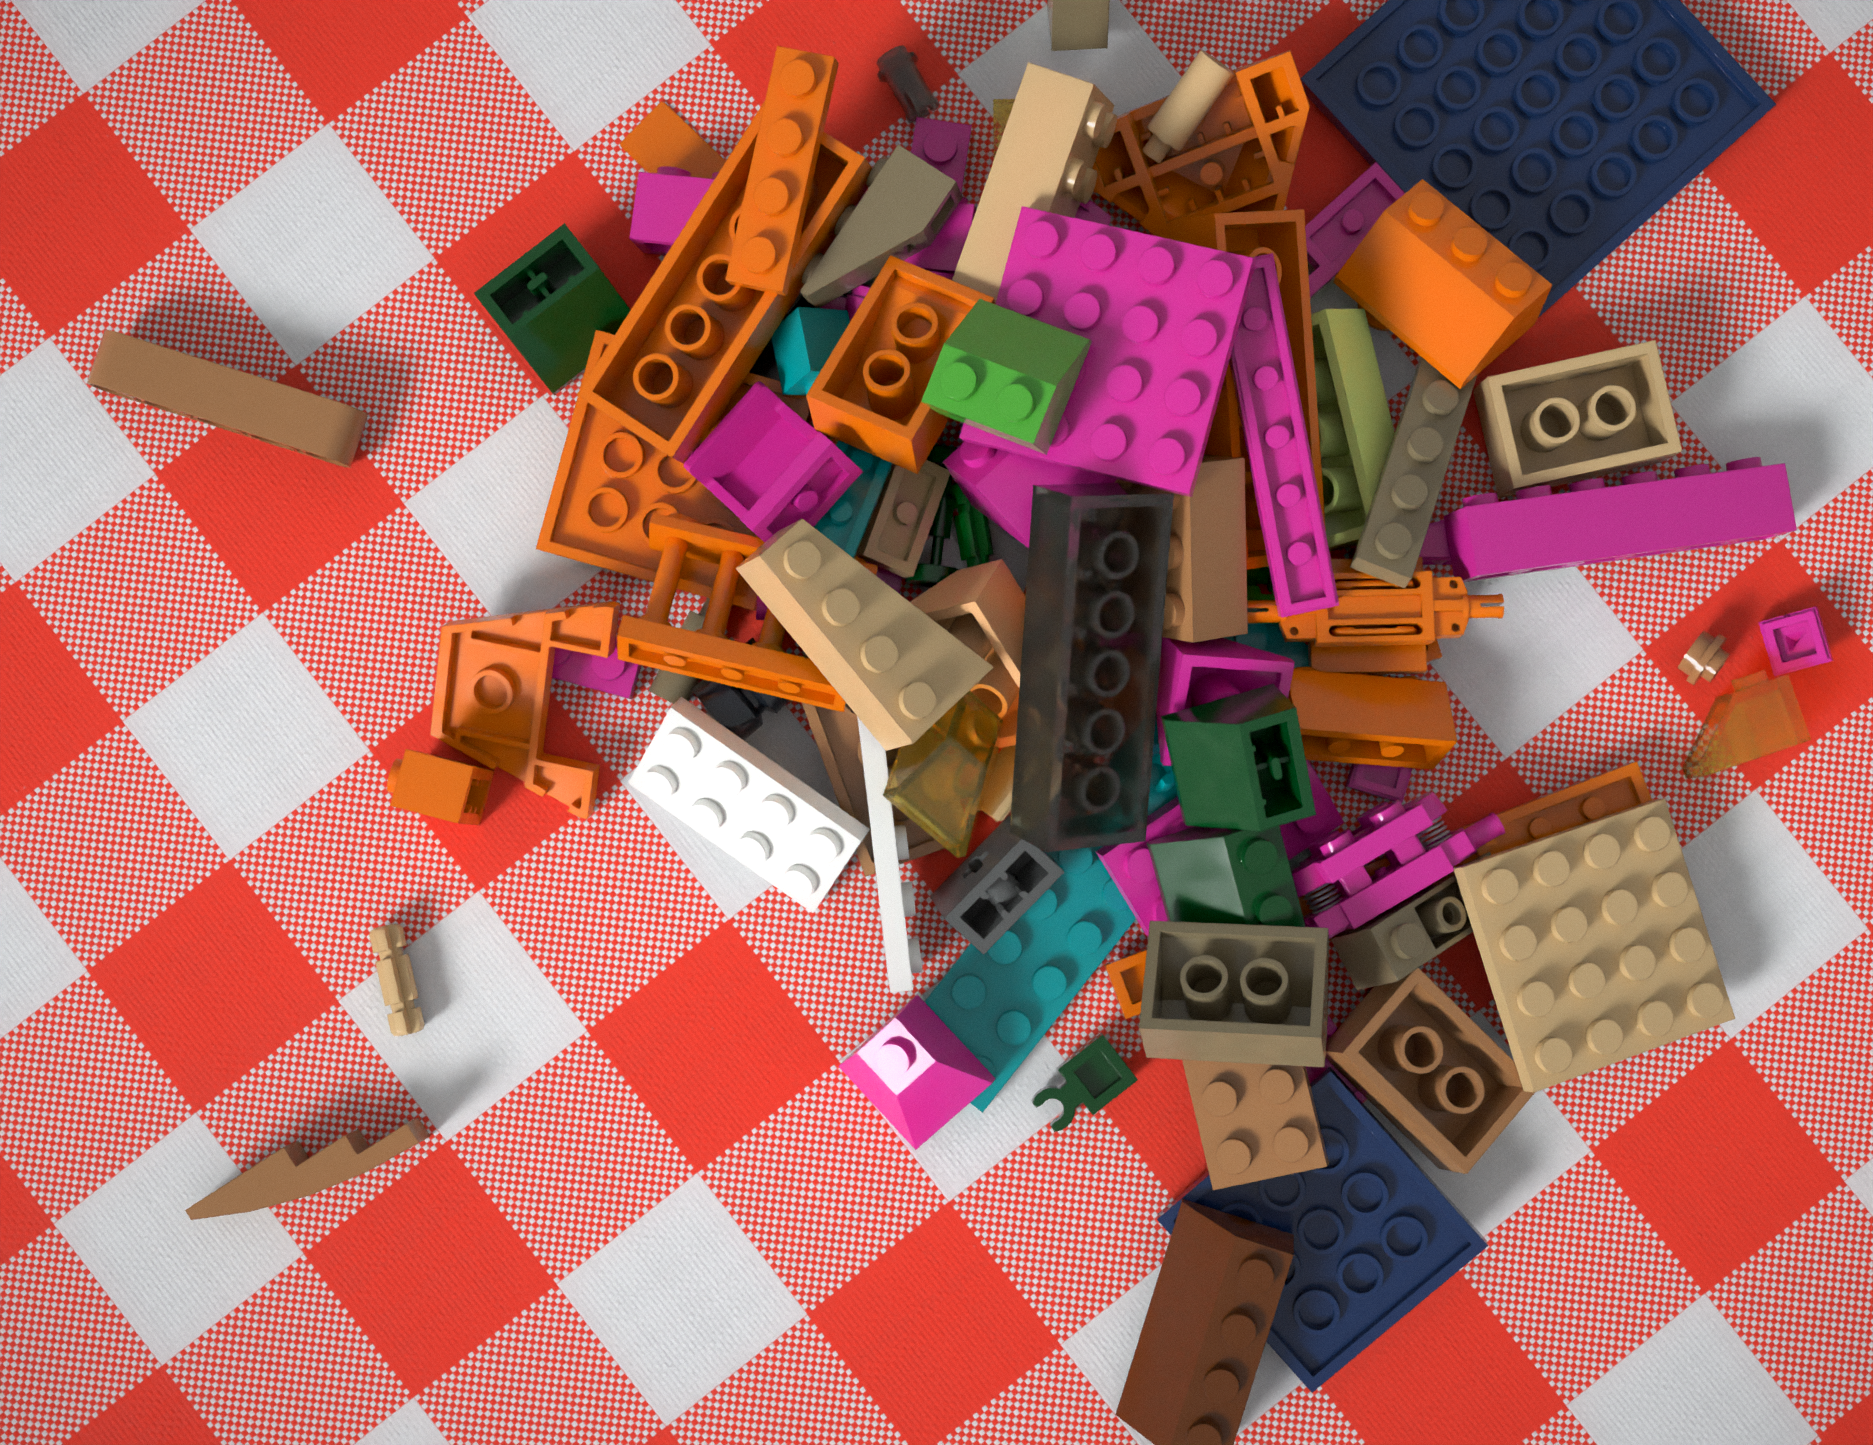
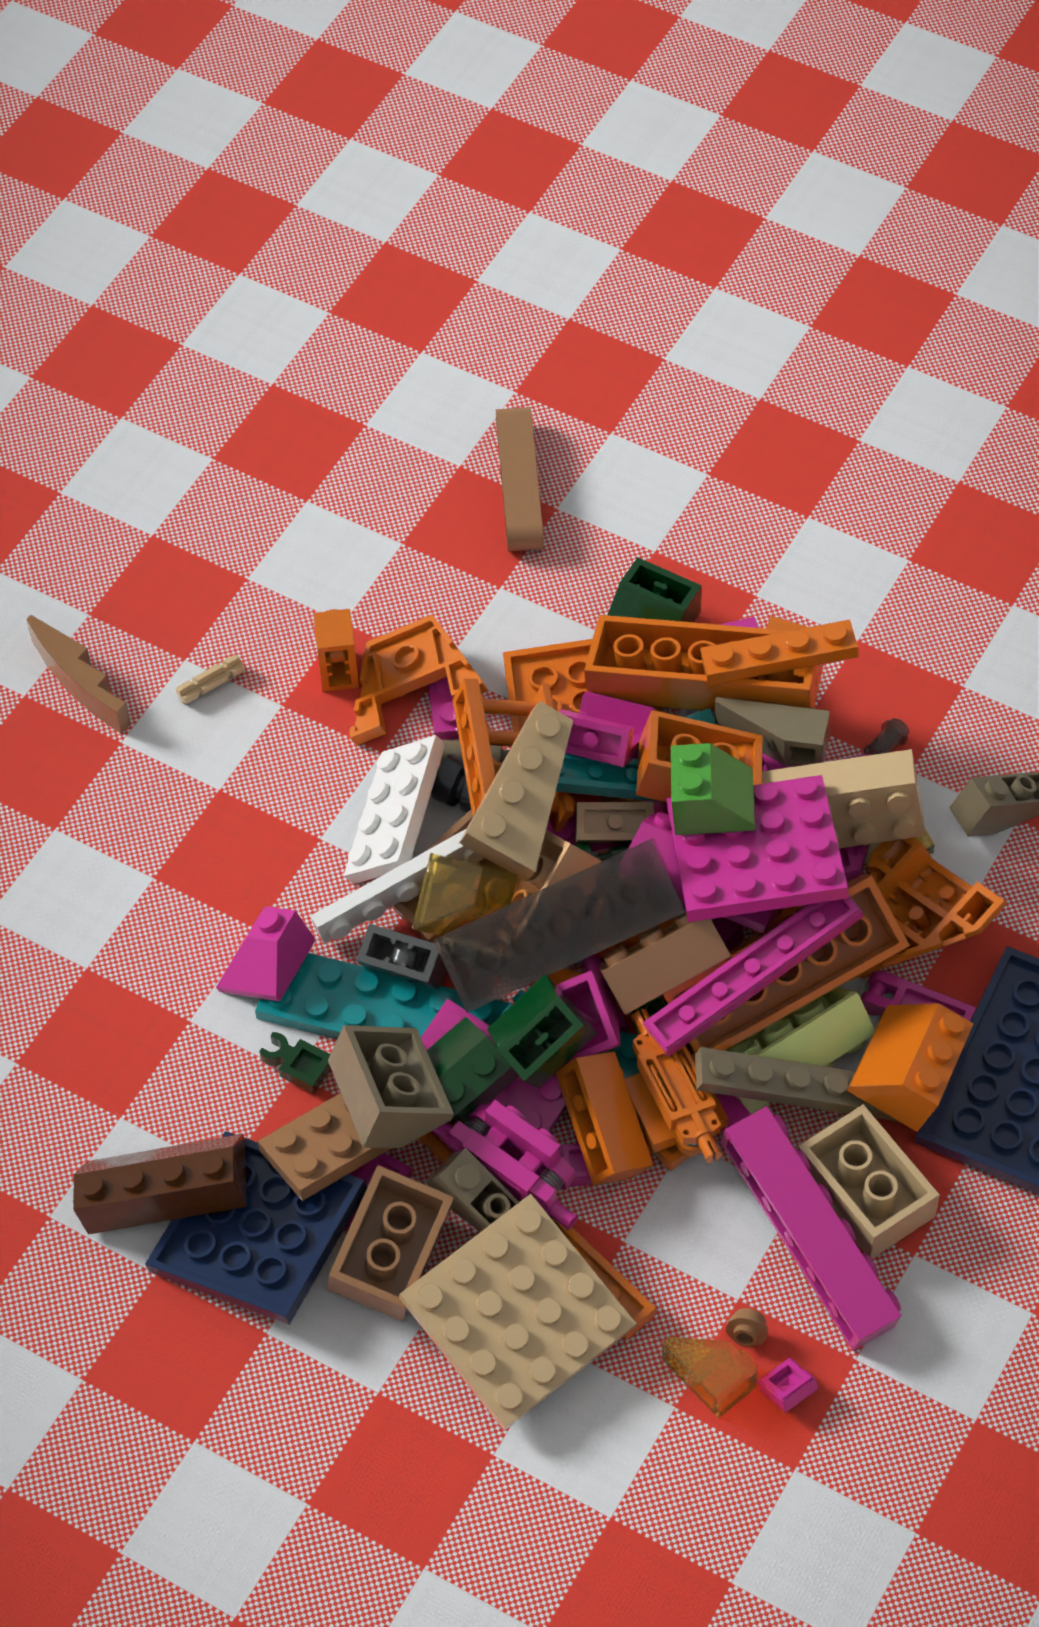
camera: 70 degrees right, 30 degrees down
(1187, 105) = (947, 877): tan cylinder -> none

